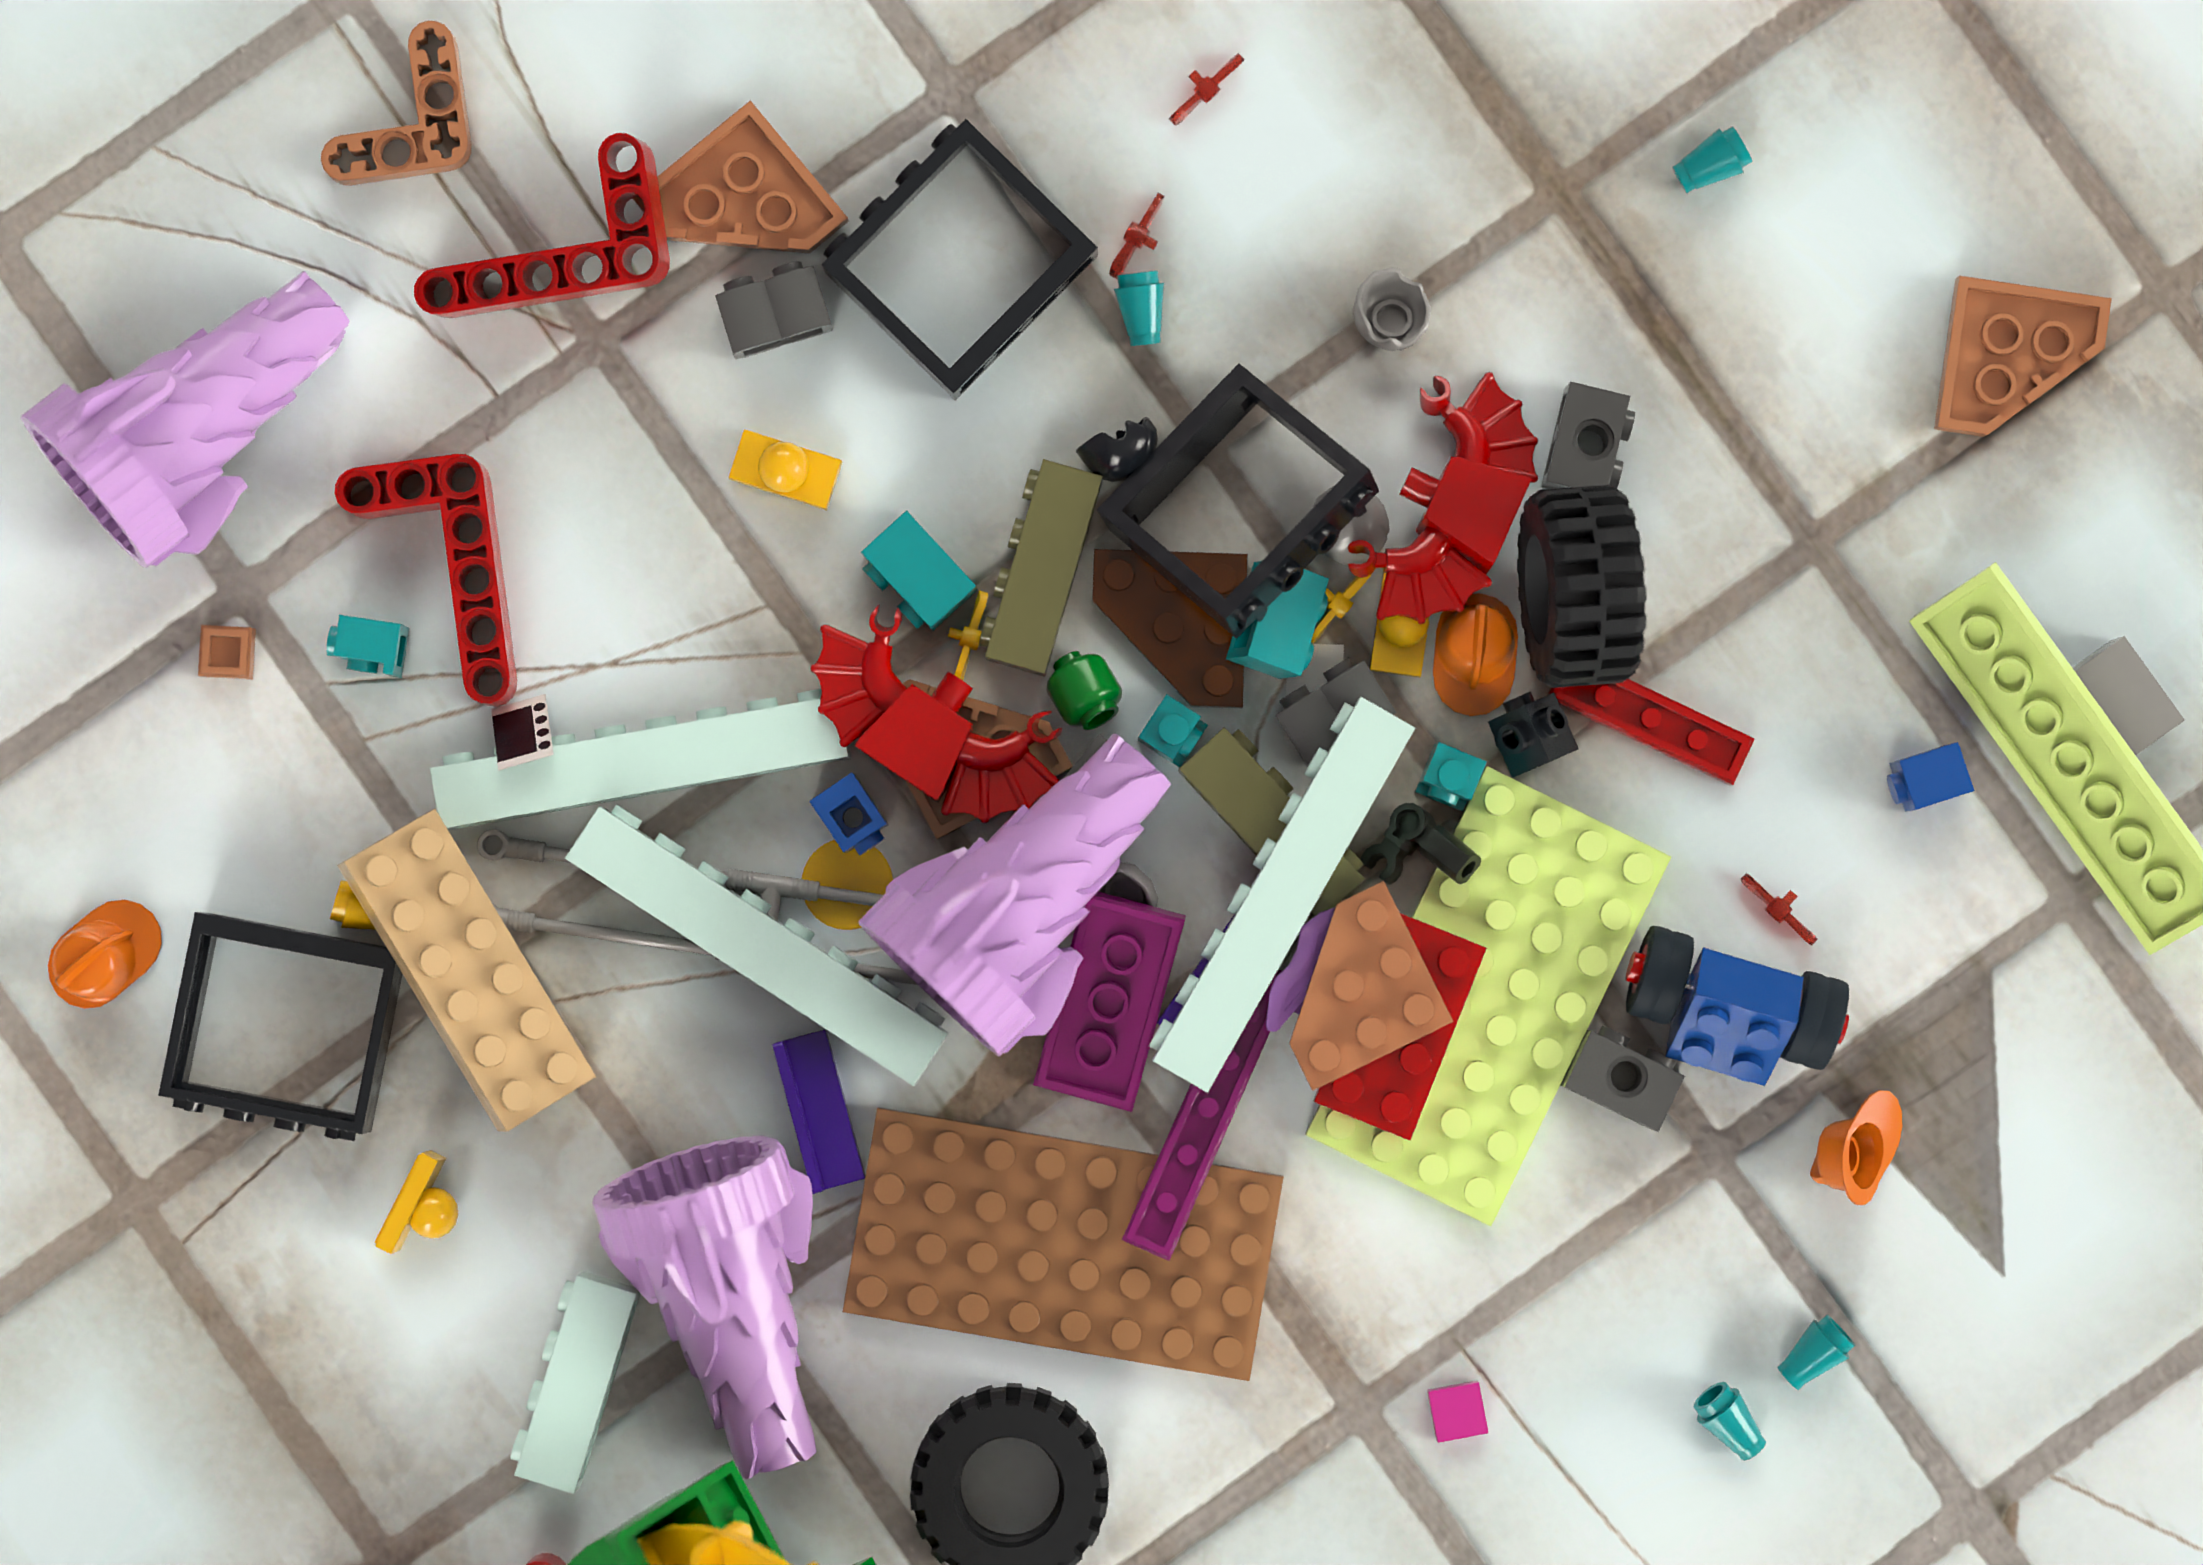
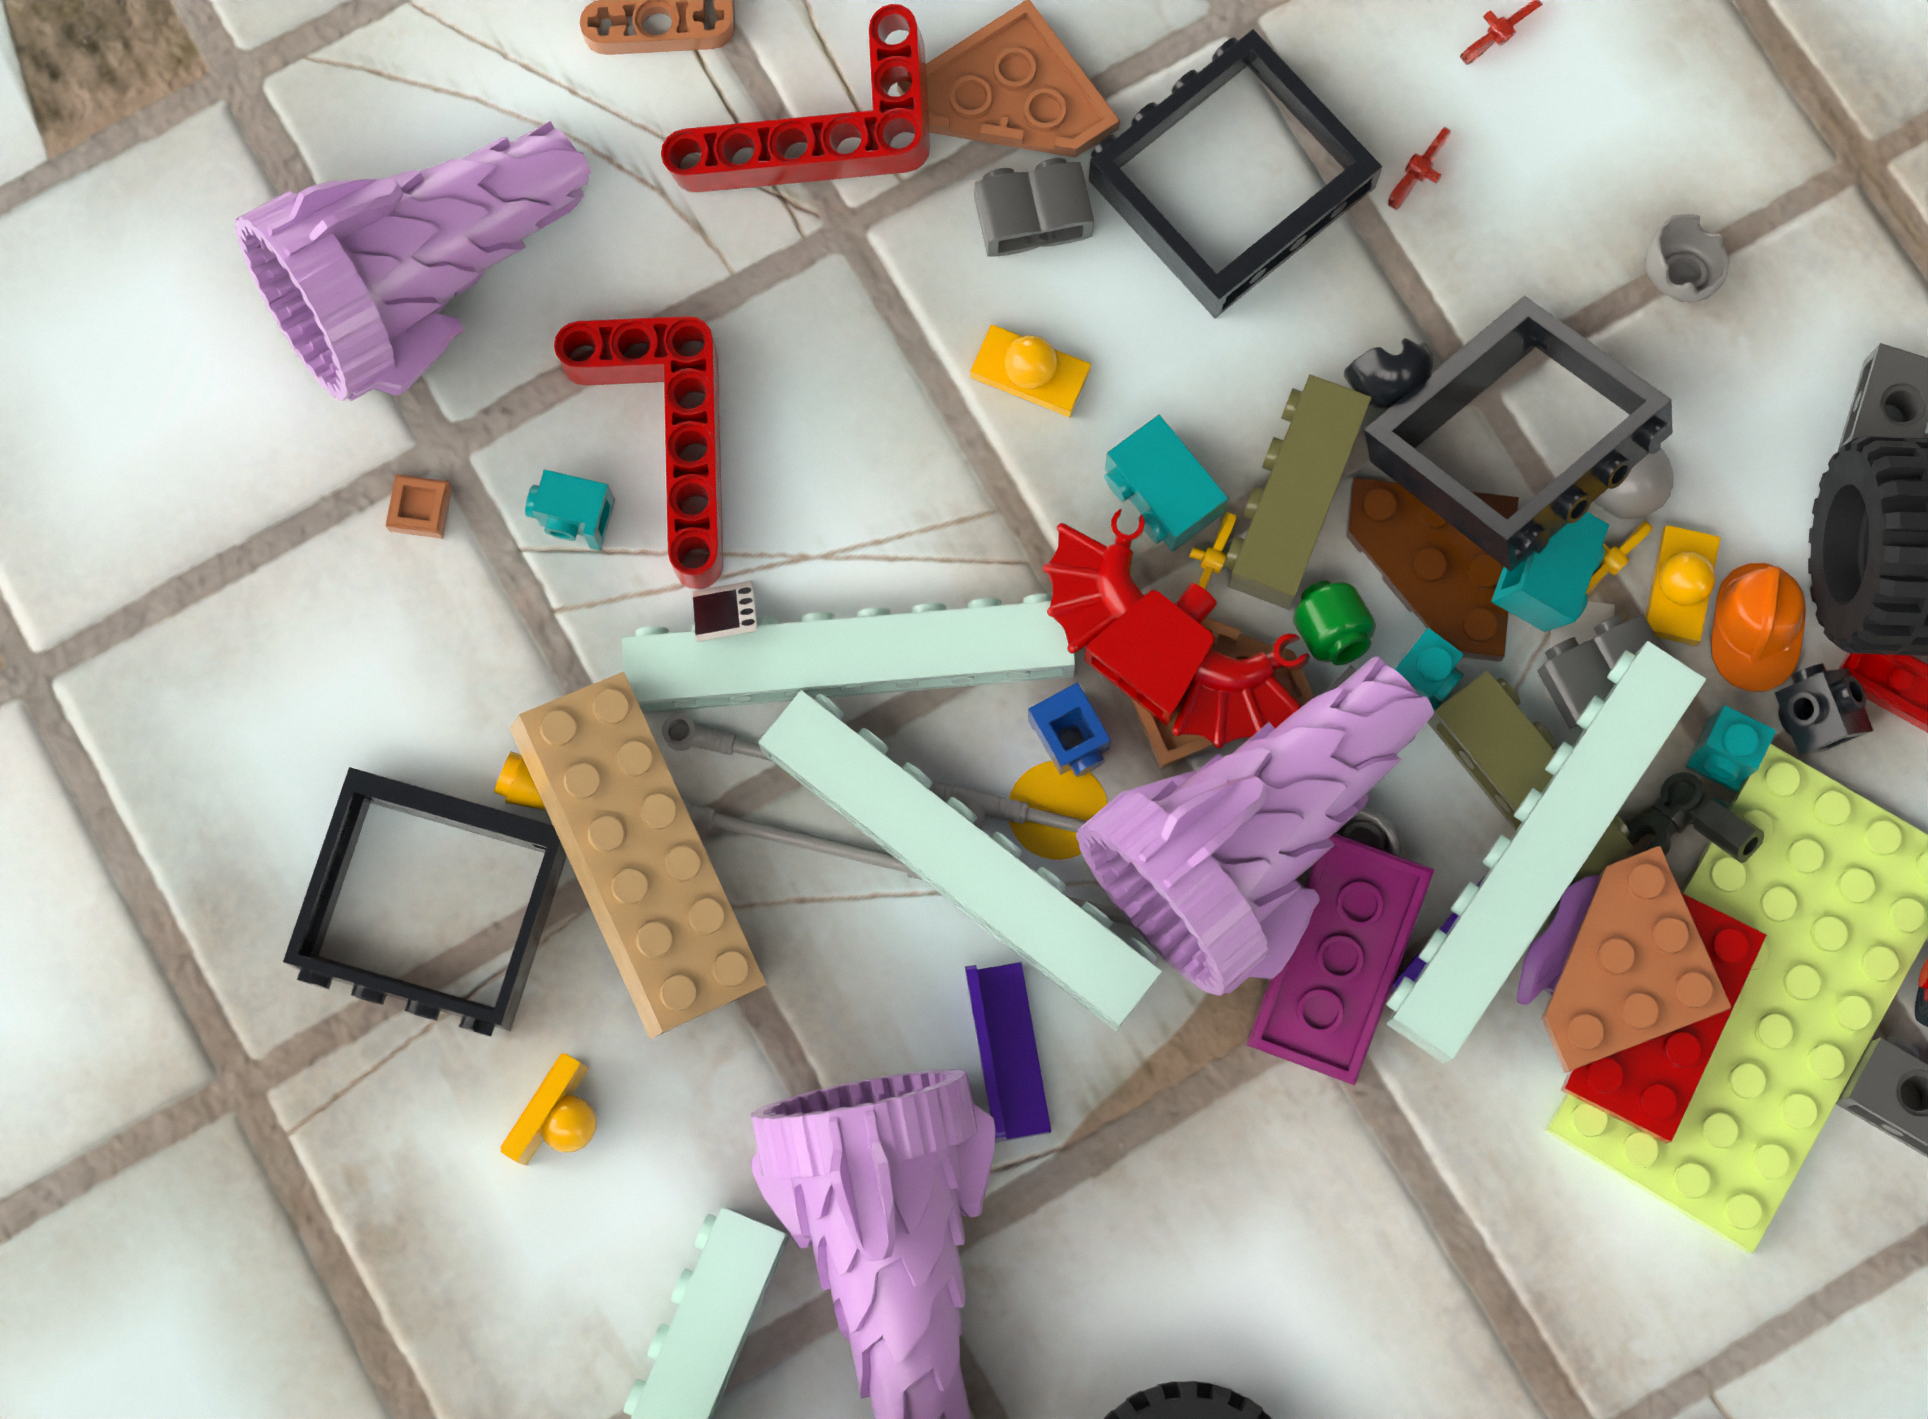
camera: 10 degrees right, 10 degrees down
(104, 953) = (245, 811): orange piece -> none
(1028, 1247) = (1269, 1228): medium nougat plate -> none
(1141, 306) = (1420, 235): teal cone -> none
(1194, 1144) = (1424, 1127): magenta tile -> none
(1464, 510) = (1758, 467): red torso -> none

